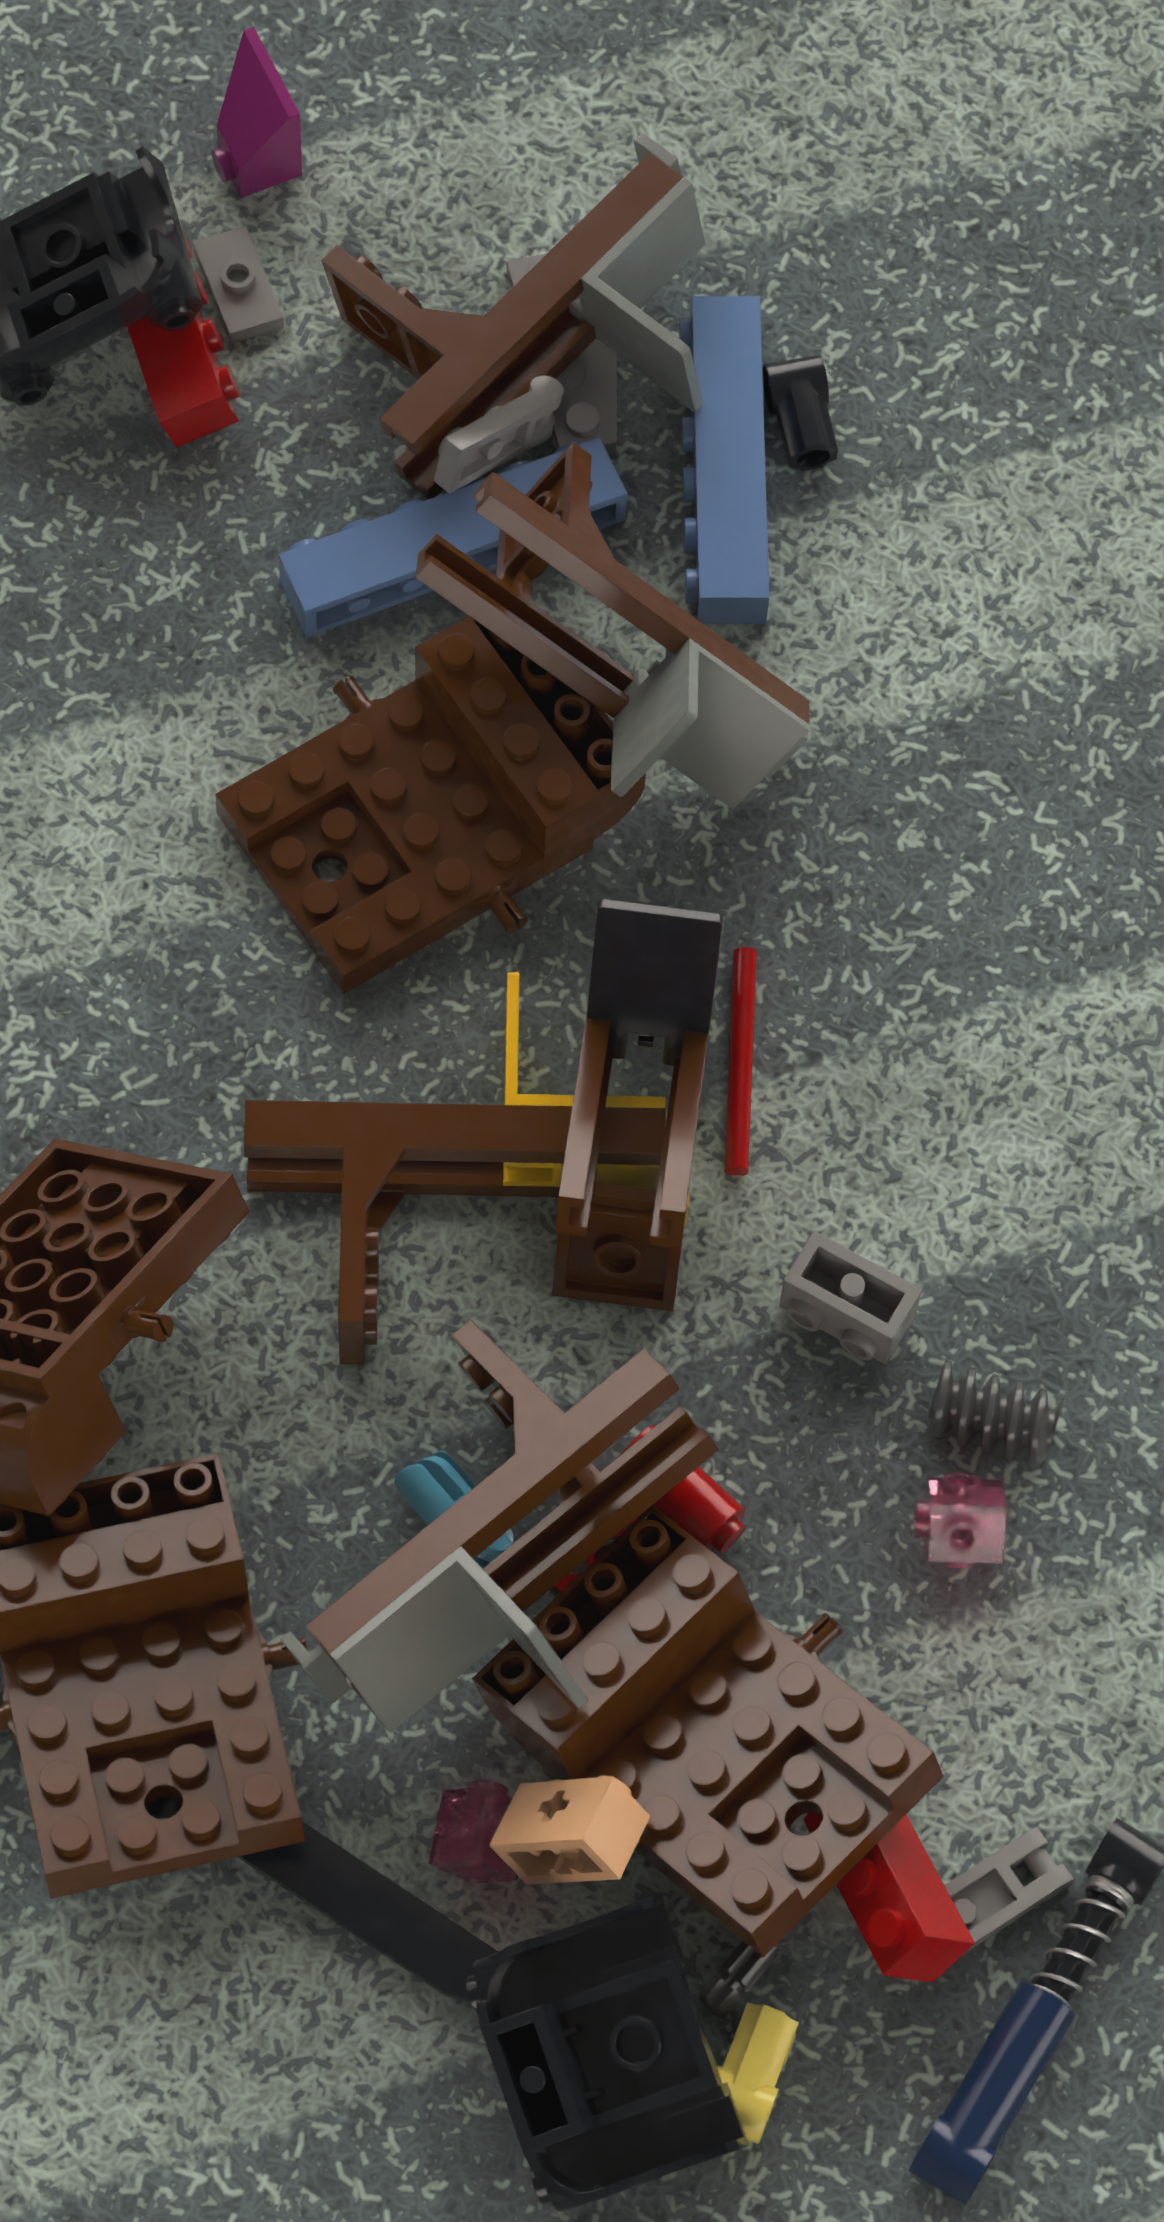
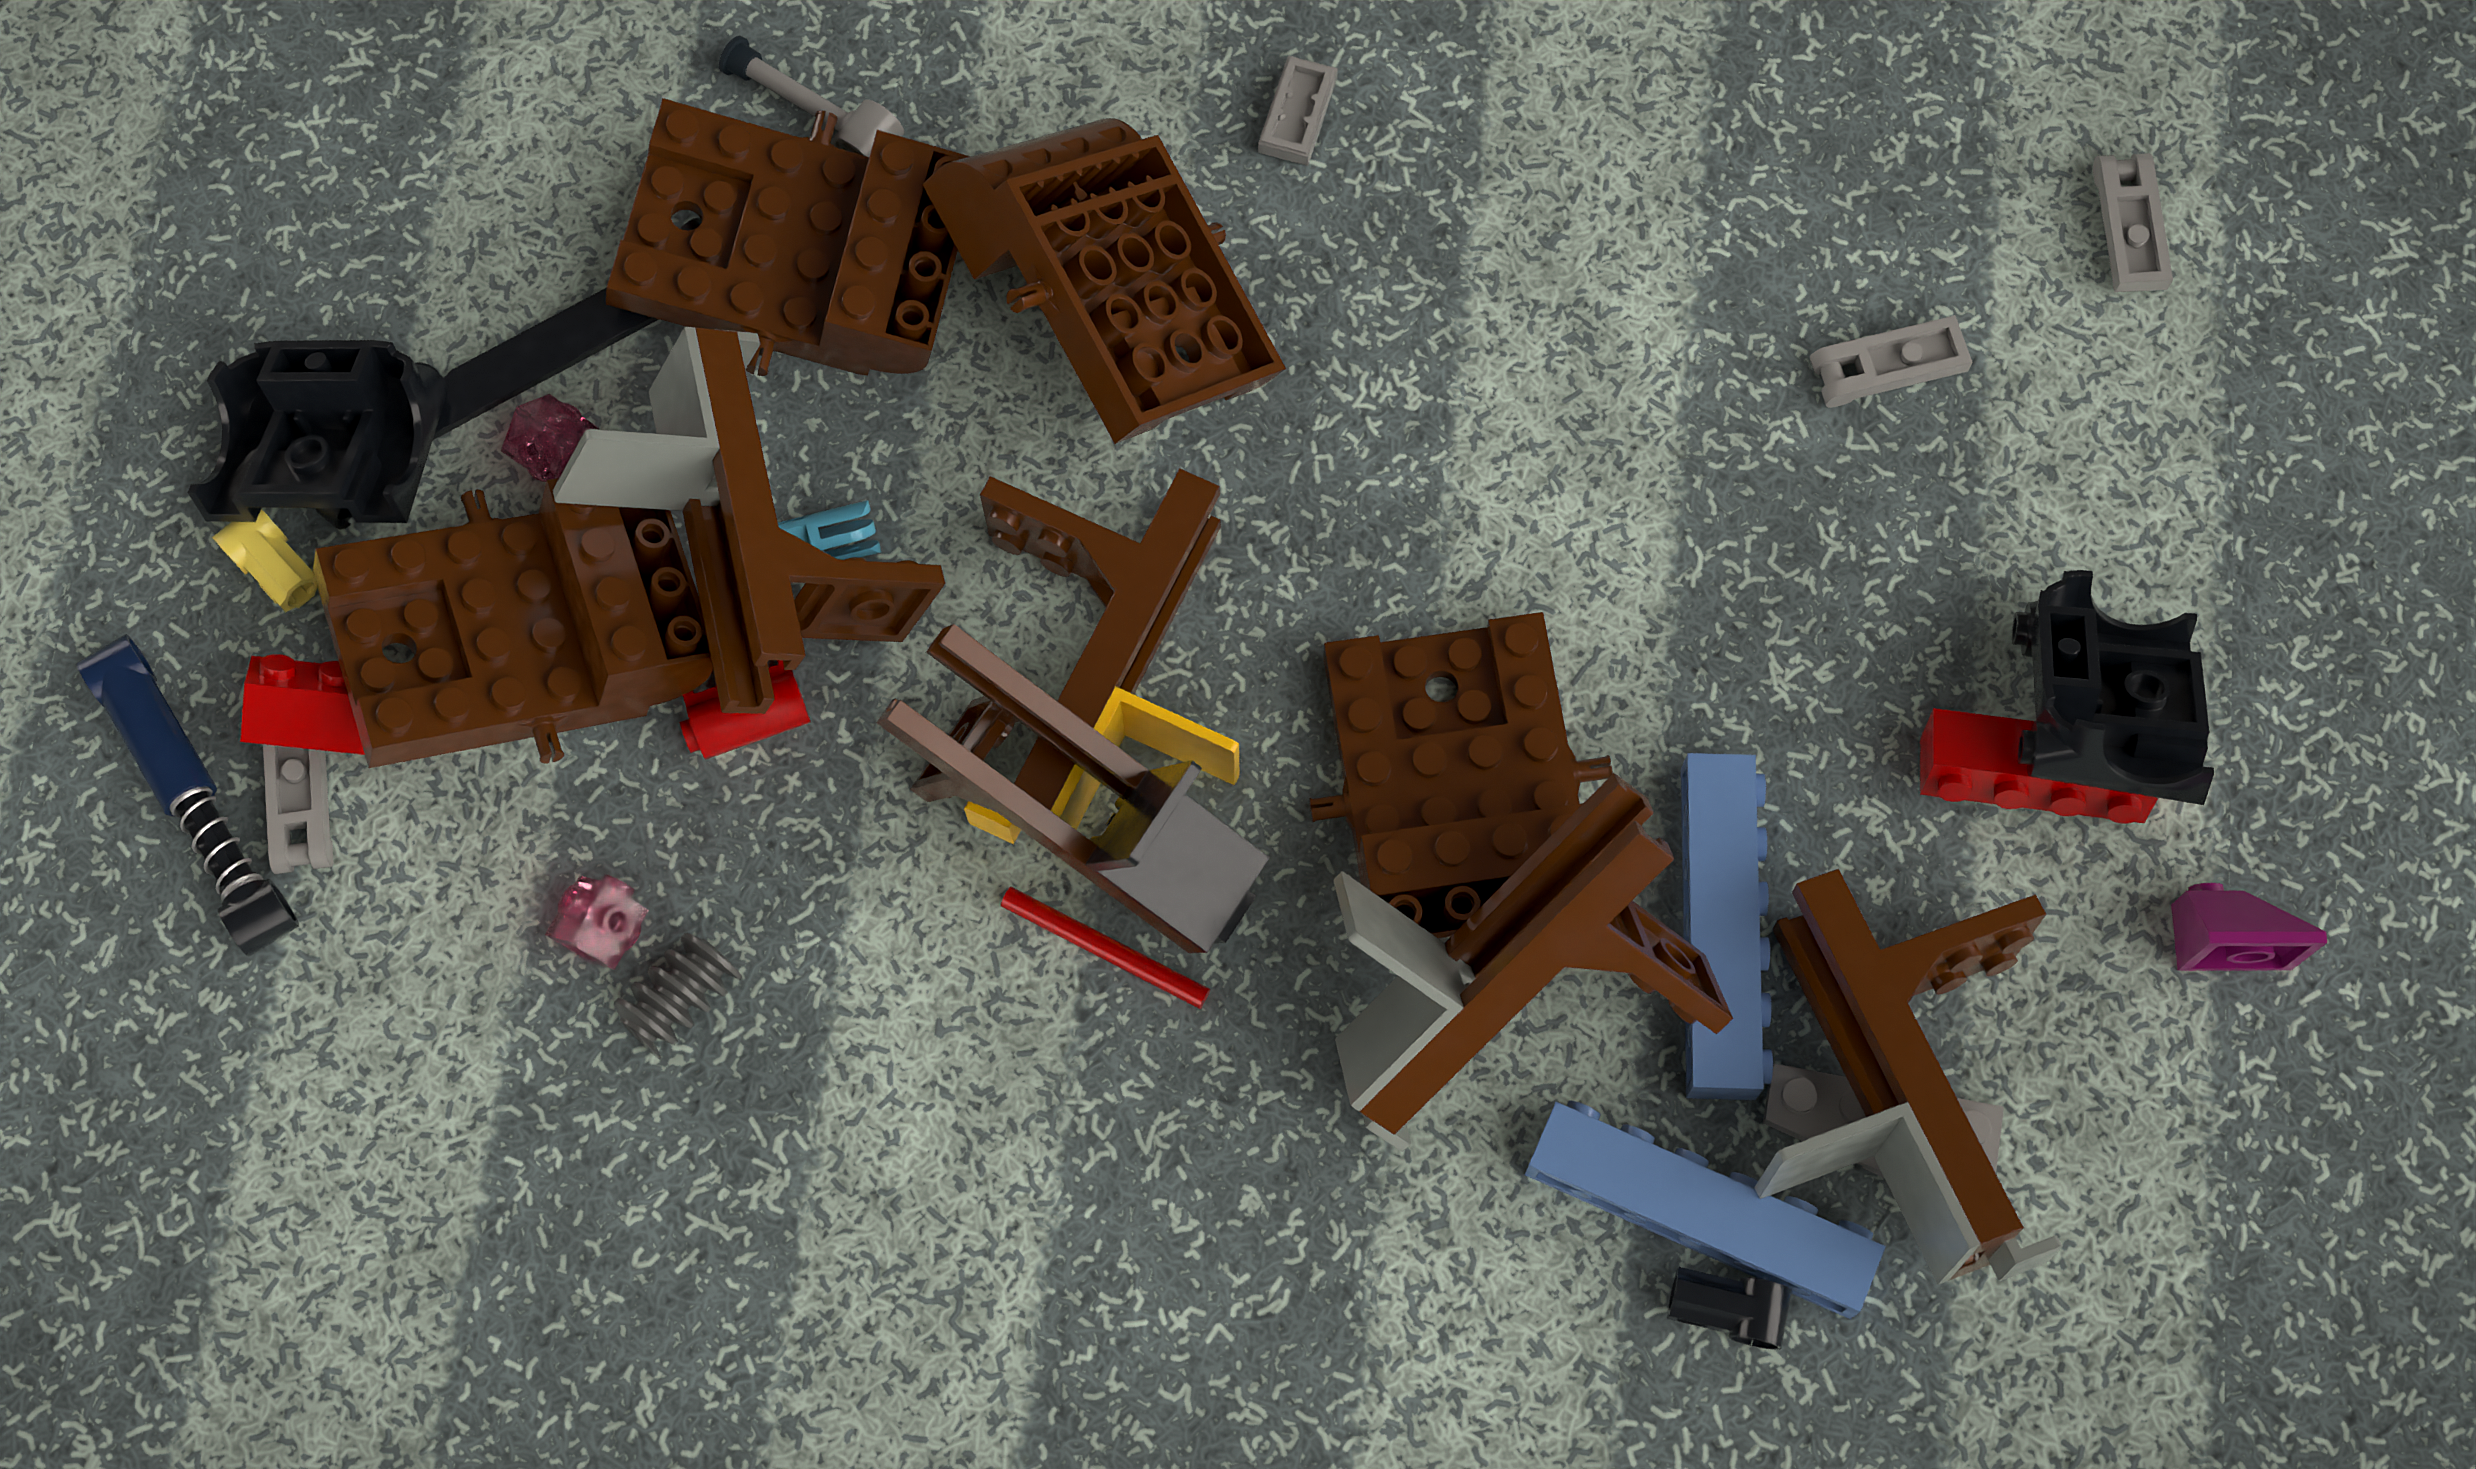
camera: 120 degrees right, 5 degrees up
(238, 284) = (2072, 858): light grey plate -> none
(499, 435) = (1800, 996): light grey plate -> none
(570, 1830) = (490, 476): light nougat brick -> none
(849, 1299) = (832, 918): light grey brick -> none

